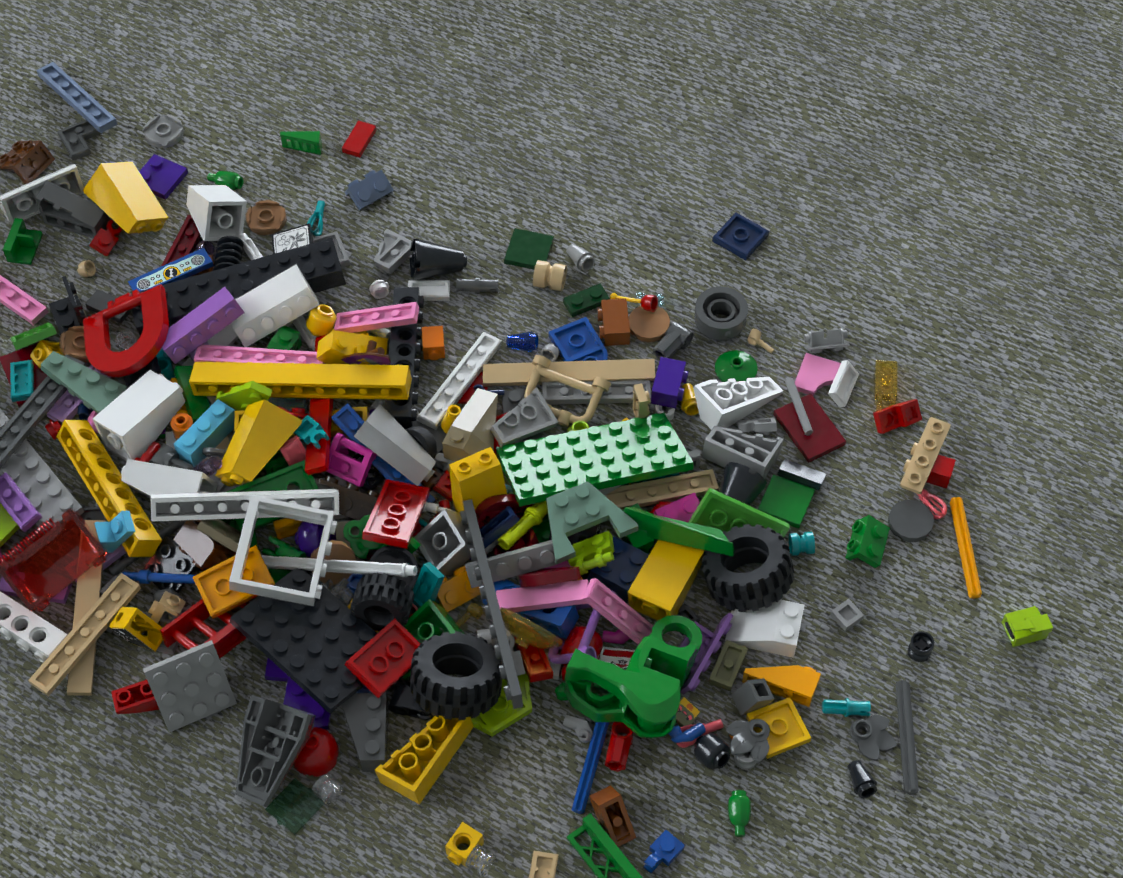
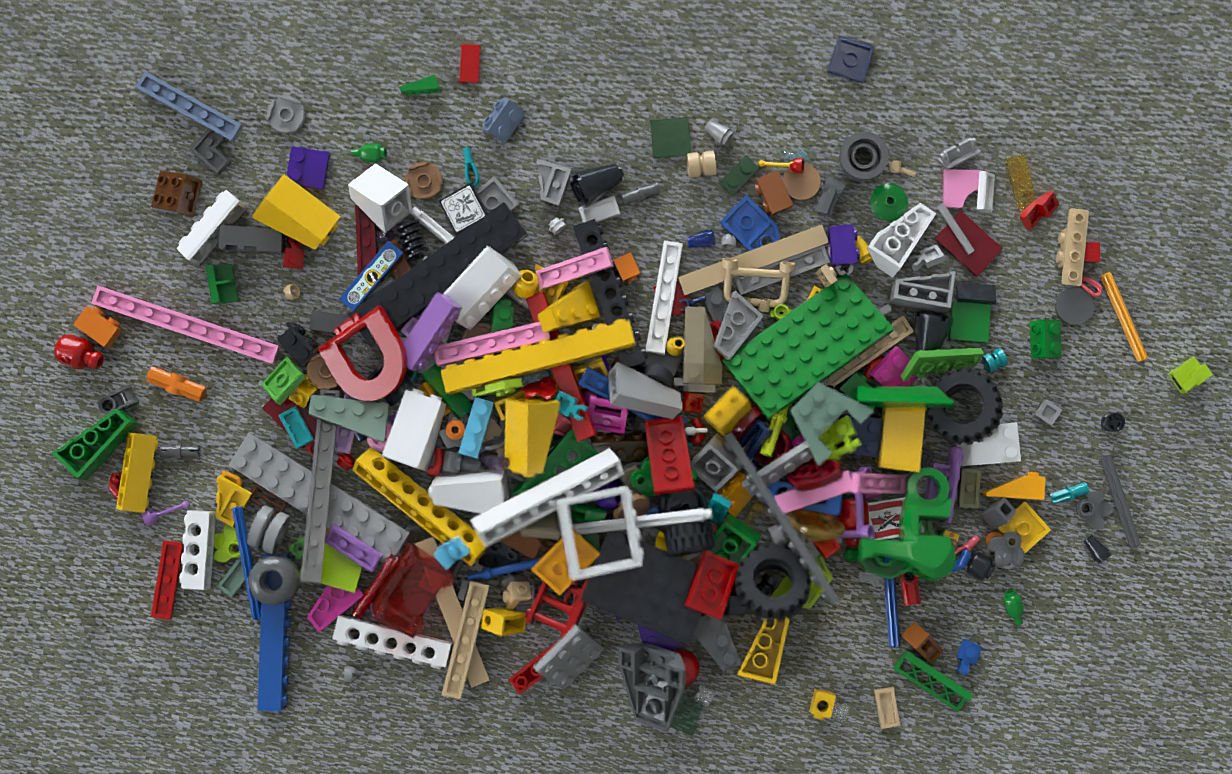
camera: 20 degrees left, 30 degrees up
(371, 357) = (588, 315): shield -> none

